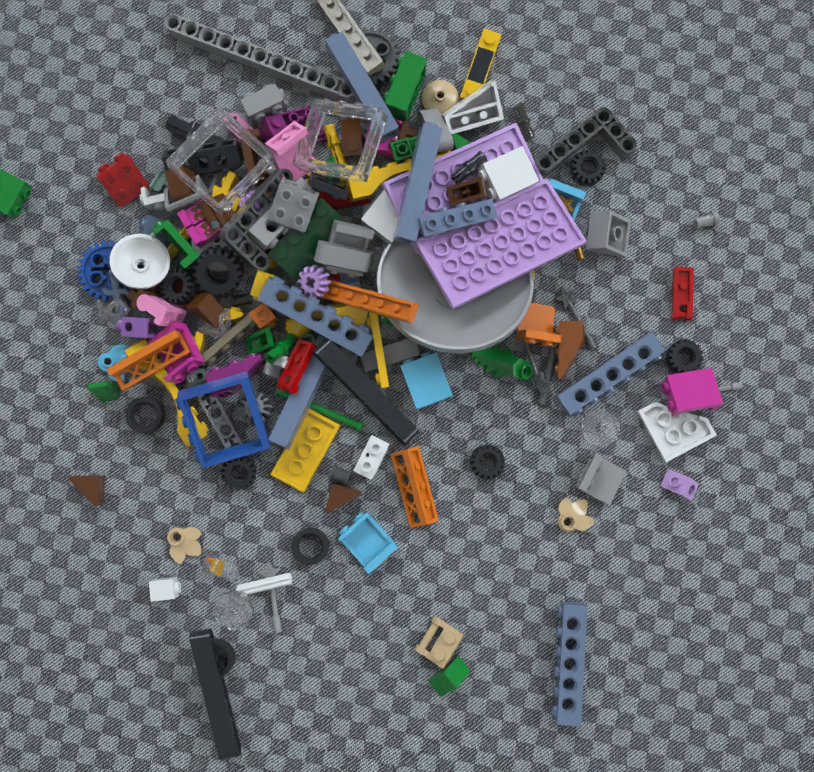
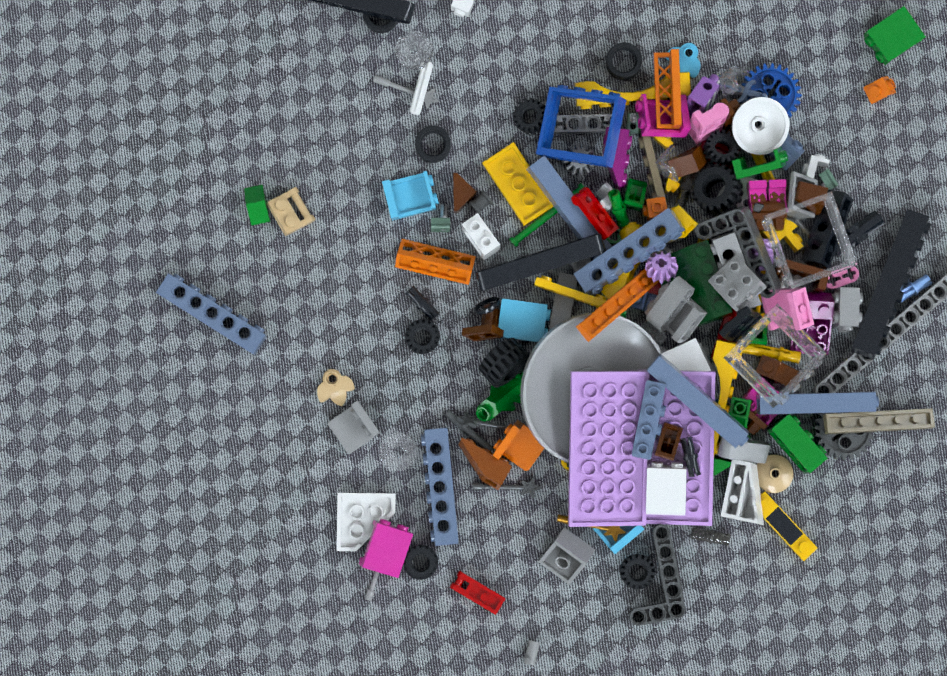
camera: 115 degrees right, 0 degrees up
(55, 179) = (880, 89): none -> orange bracket
(104, 391) = (662, 37): green slope -> none
(122, 179) = (848, 148): red bracket -> none
(186, 545) = (491, 38): tan plate -> none
(216, 62) = (915, 287): none -> light blue axle
(221, 567) = (456, 58): clear leg -> none
(222, 79) = (890, 284): none -> black brick
(376, 498) = (441, 224): none -> sand green piece
(443, 409) = (489, 324): none -> reddish brown piece
(457, 478) = (422, 303): none -> black pin
(473, 376) = (504, 362): none -> black tyre
(679, 484) = (311, 495): lavender bracket -> none

